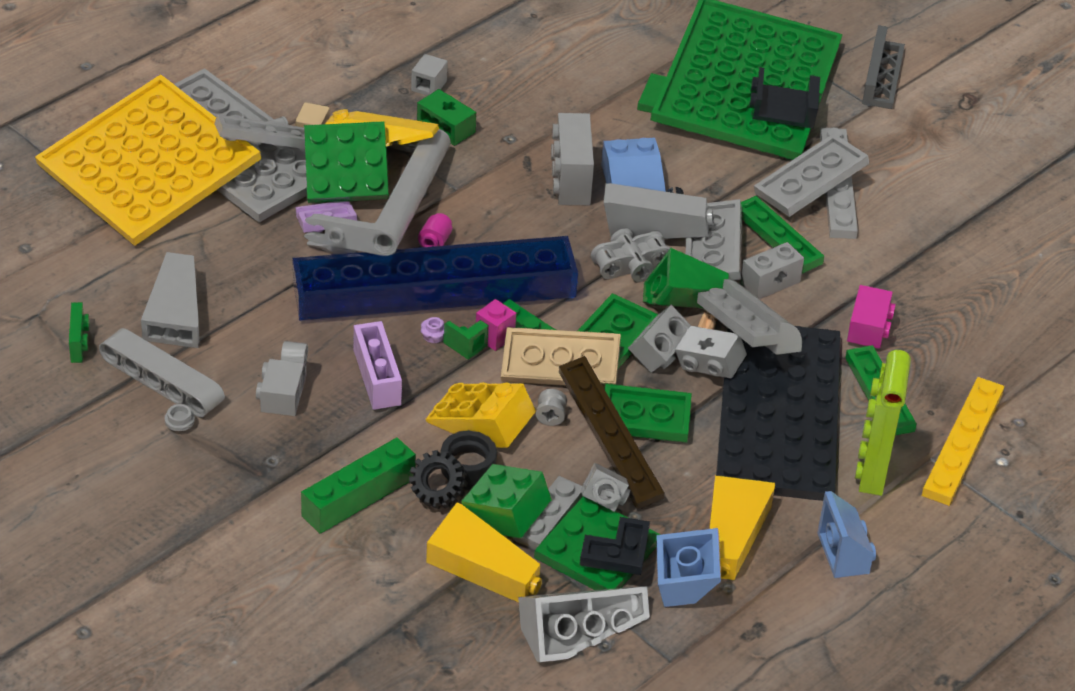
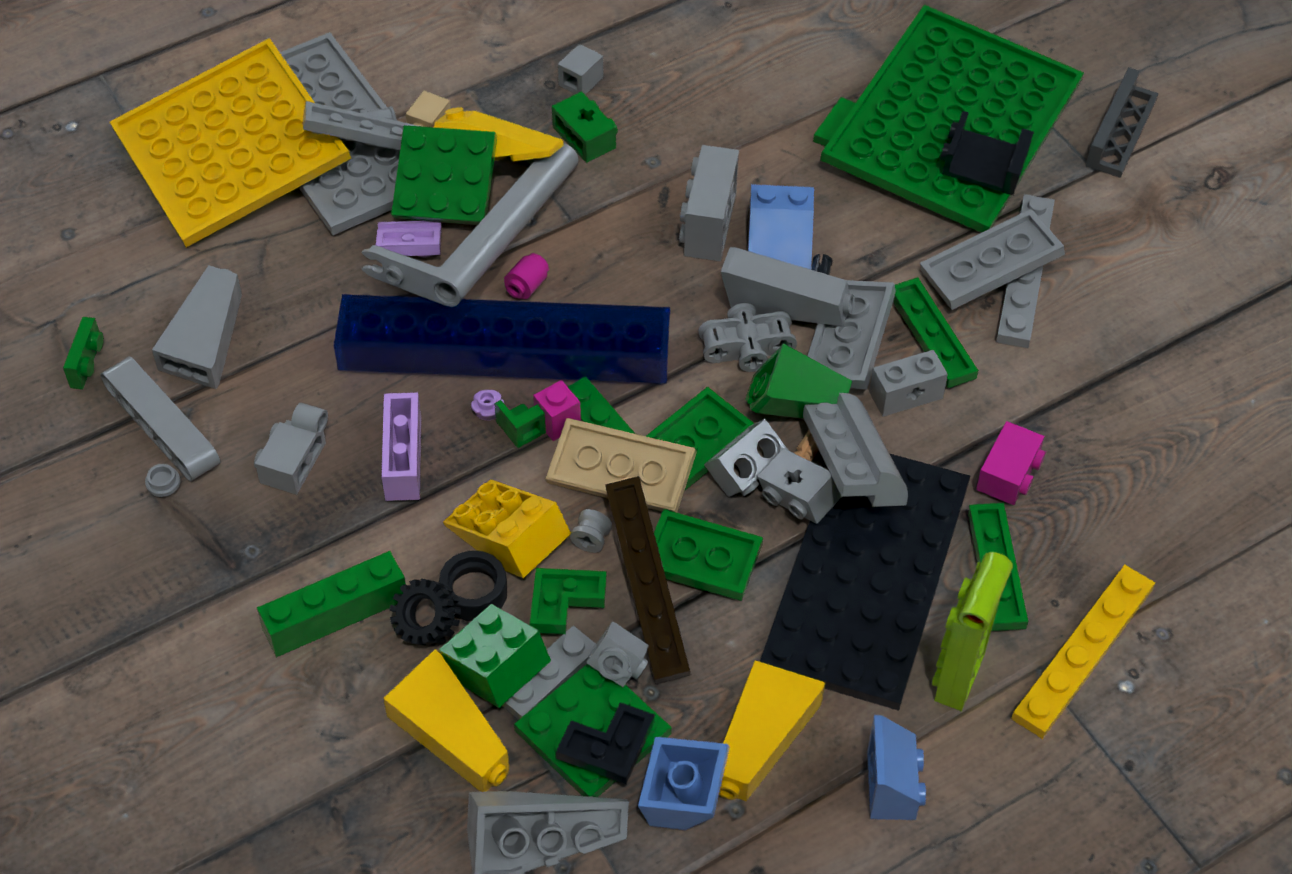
camera: 15 degrees right, 10 degrees up
(542, 451) = (562, 588): none -> green plate

